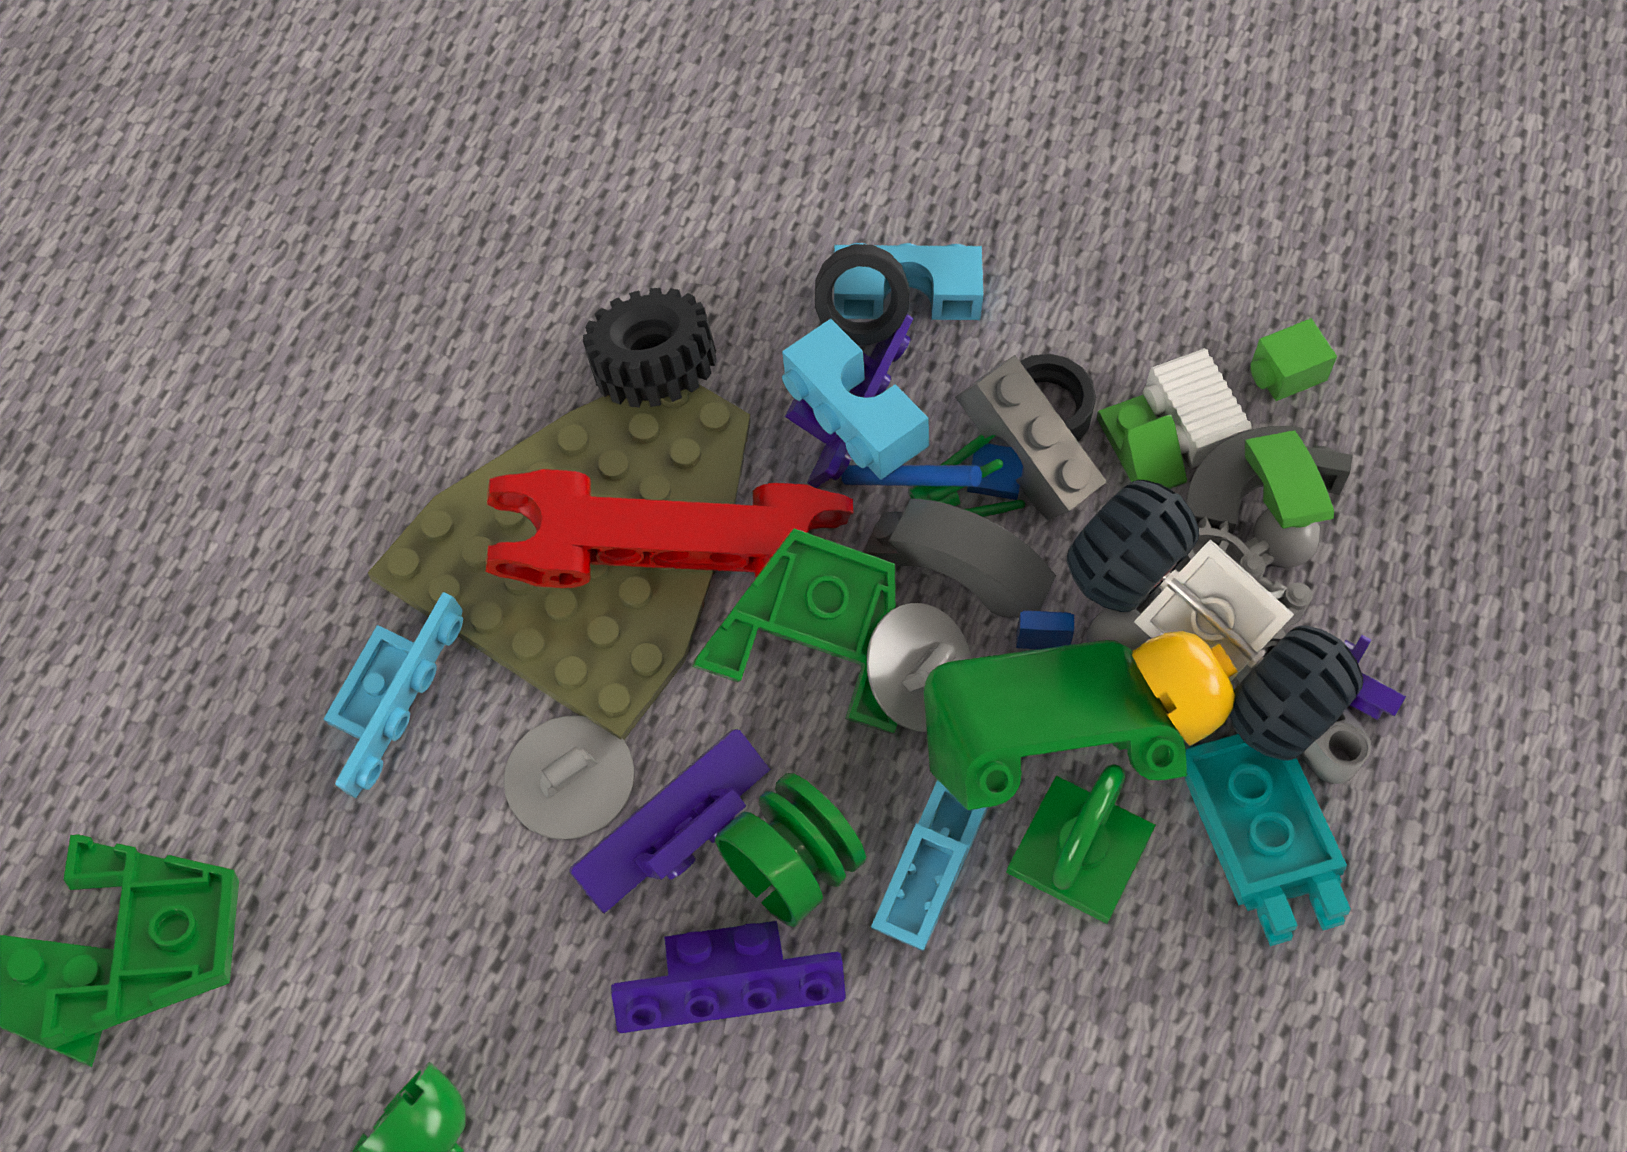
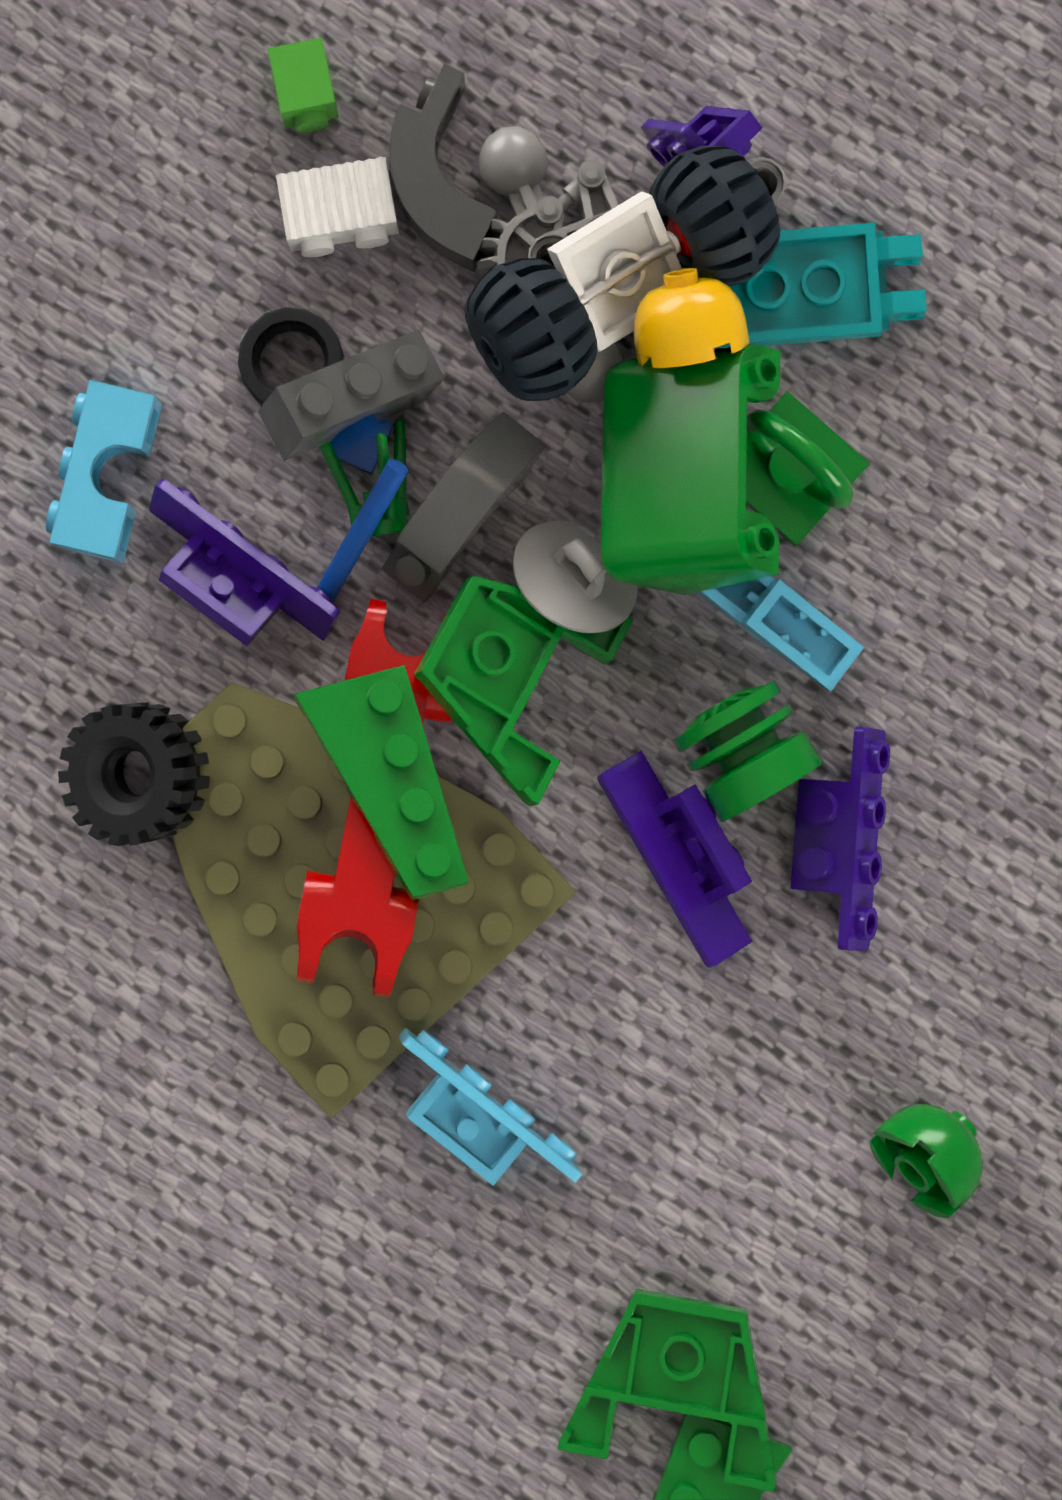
camera: 80 degrees left, 25 degrees up
(568, 778) = (602, 950): light grey shield -> none
(698, 523) = (385, 760): none -> green wing
(863, 256) = (98, 535): black tyre -> none
(877, 429) = (314, 554): medium azure arch -> none
(1044, 629) = (560, 439): blue tile -> none
(1144, 443) = (365, 275): bright green slope -> none
(1290, 479) = (470, 140): bright green slope -> none

